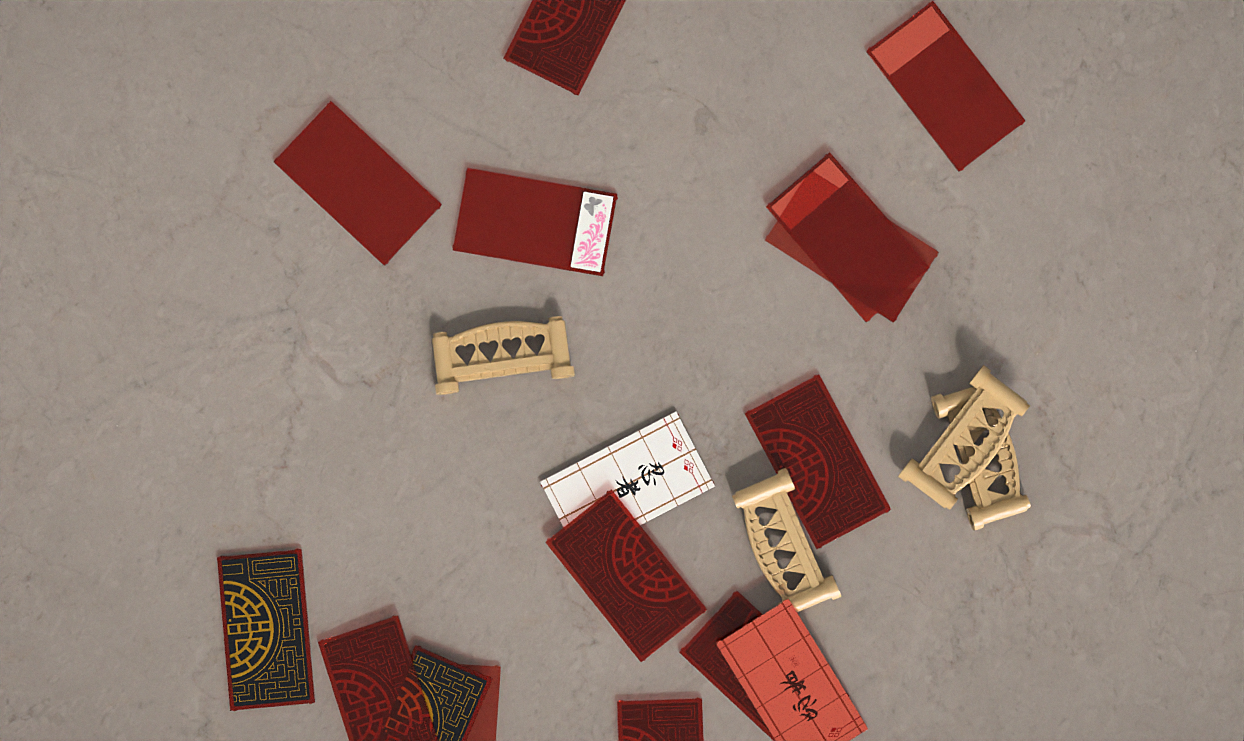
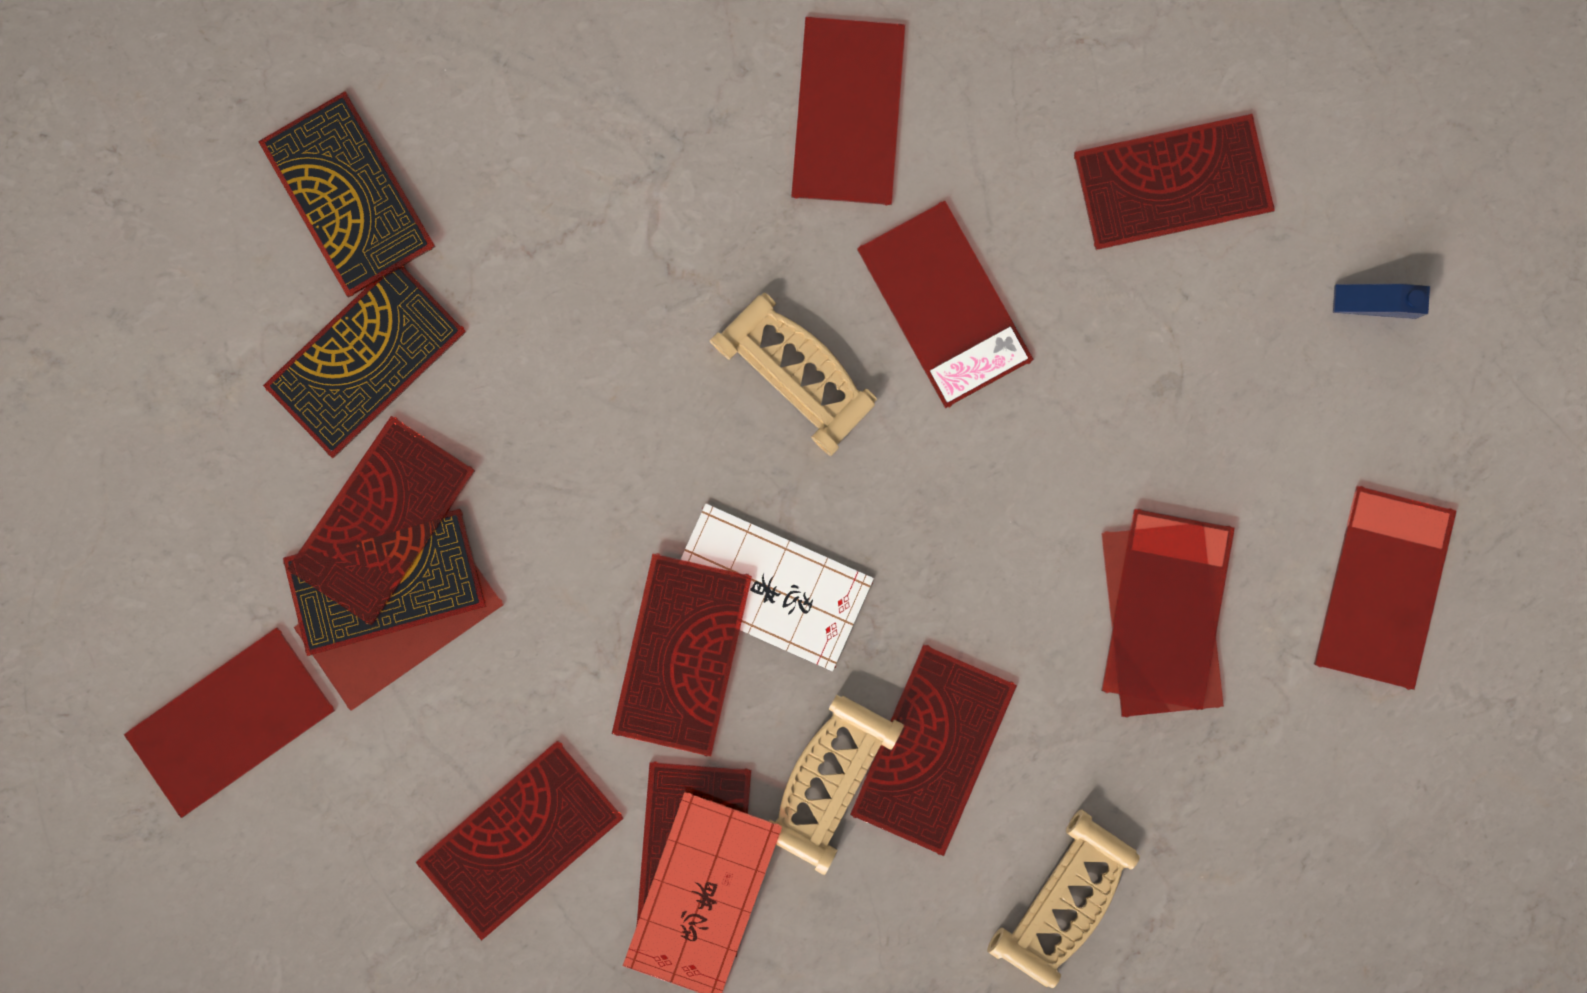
camera: 50 degrees right, 0 degrees up
(148, 555) = (346, 194): none -> black piece
(989, 394) = (1129, 863): tan piece -> none

